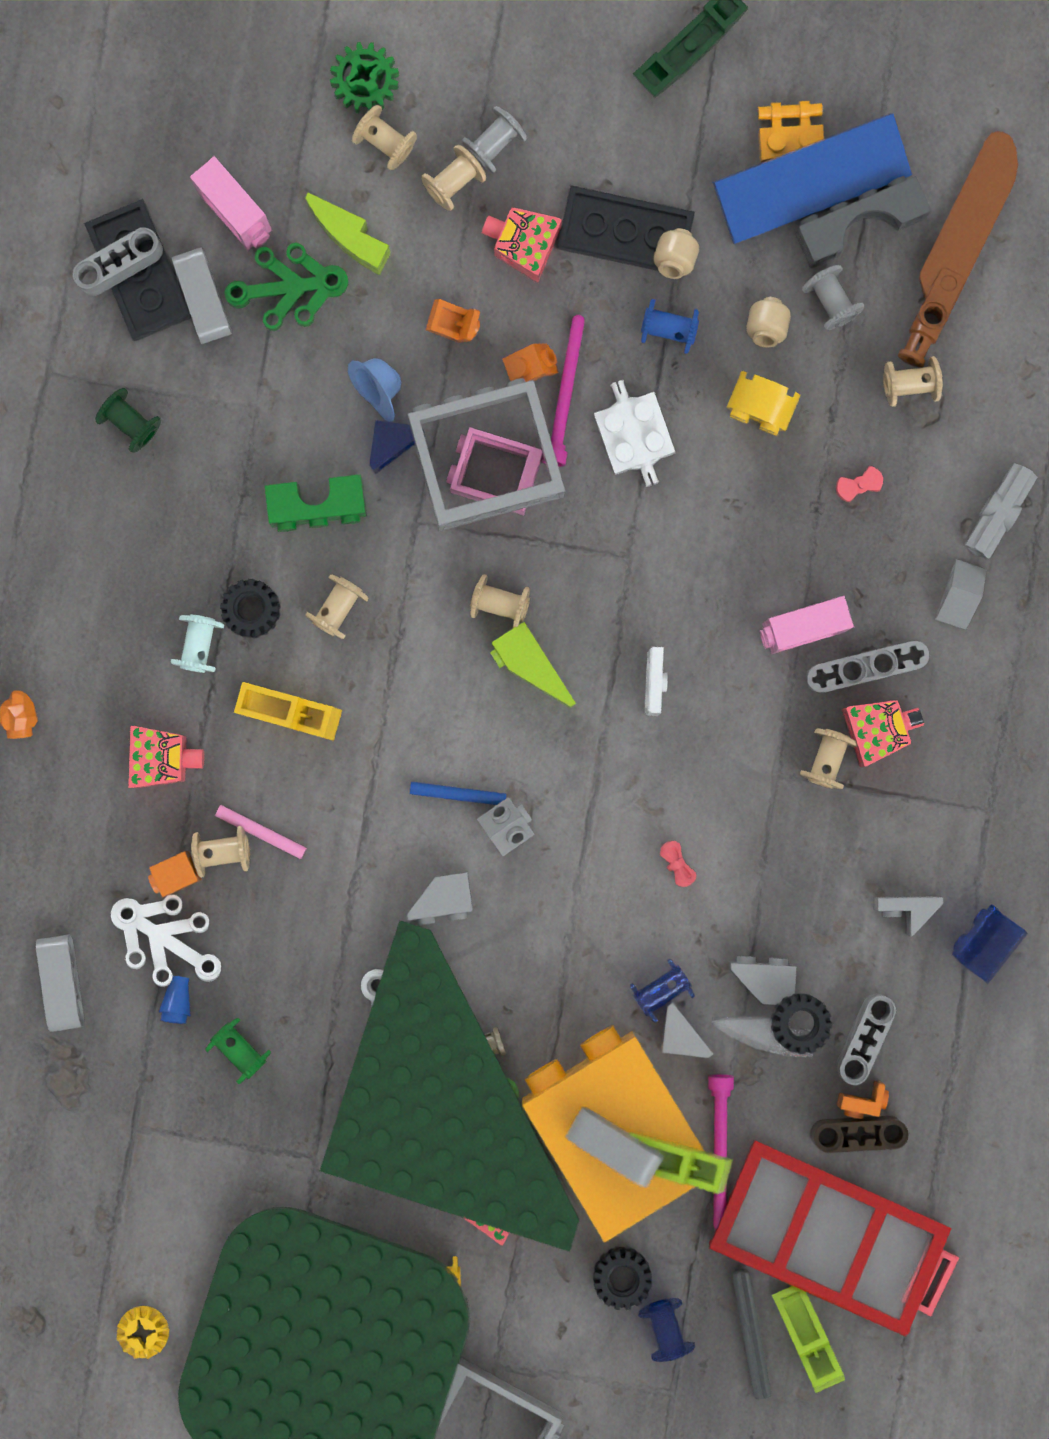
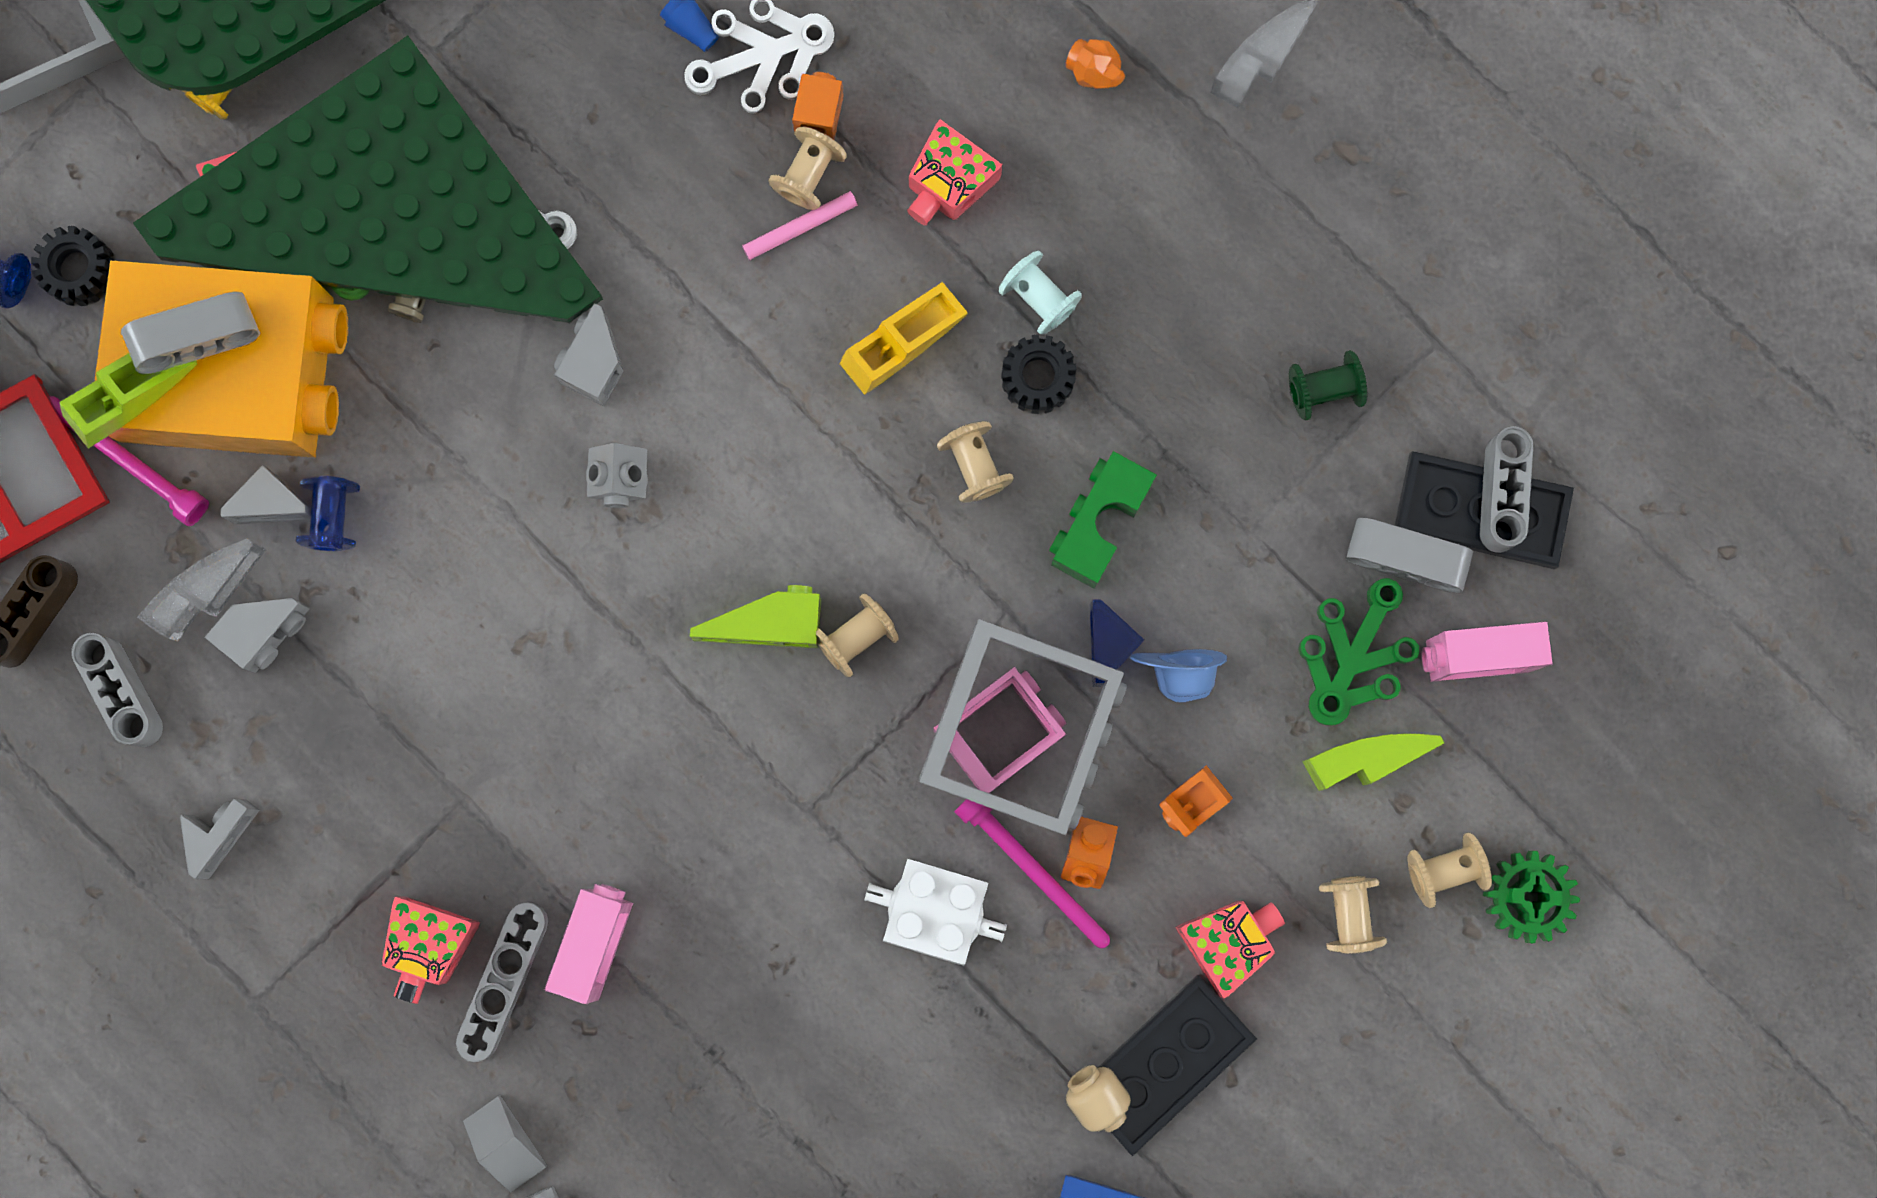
camera: 125 degrees right, 5 degrees down
(242, 1054) = (587, 45): green hose -> none
(456, 793) = (690, 451): blue bar -> none
(494, 138) = (1365, 990): light grey hose -> none
(655, 681) = (649, 737): white plate -> none
(670, 326) = (1023, 1034): blue hose -> none
(683, 873) = (431, 625): coral piece -> none
(762, 402) = (865, 1073): yellow brick -> none
(768, 322) = (951, 1148): tan head -> none
(820, 1030) = (152, 622): black tyre -> none
(829, 754) = (437, 869): tan hose -> none
(858, 1106) = (53, 635): orange bracket -> none
(870, 481) = (707, 1105): coral piece -> none
(988, 943) = (113, 894): clear blue bracket -> none

